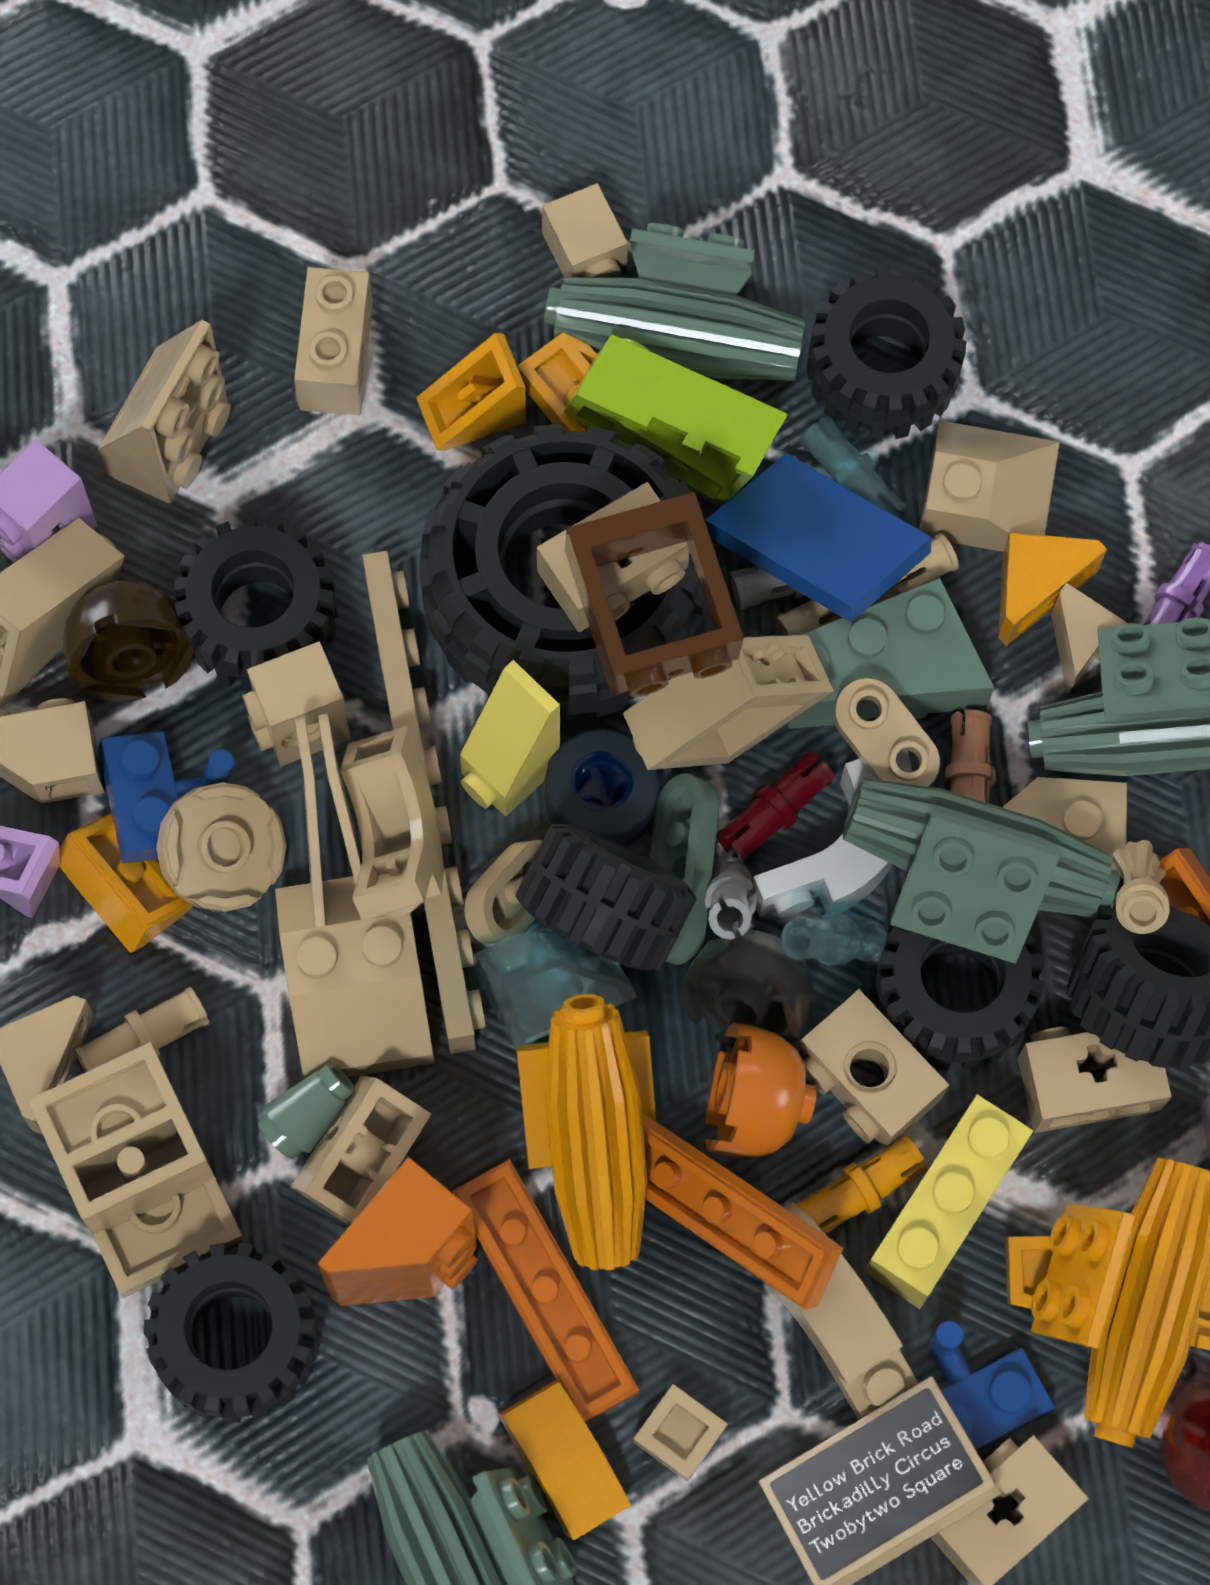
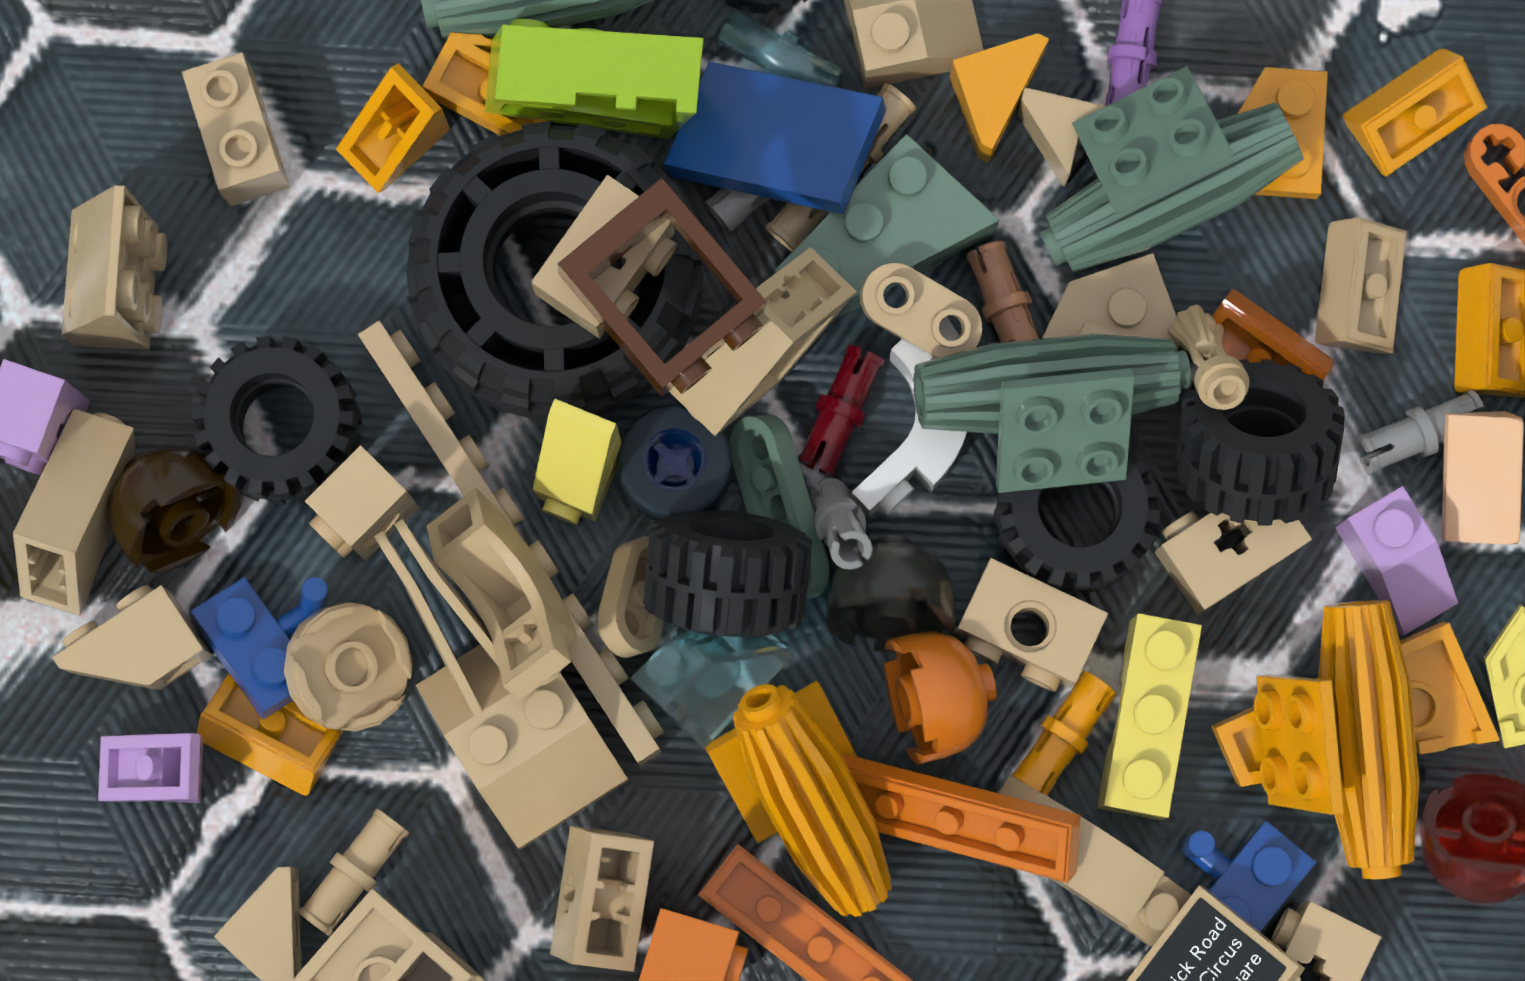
camera: 20 degrees left, 10 degrees up
(305, 1111) = (535, 880): sand green cone -> none
(833, 939) = (949, 520): clear light blue pin -> none

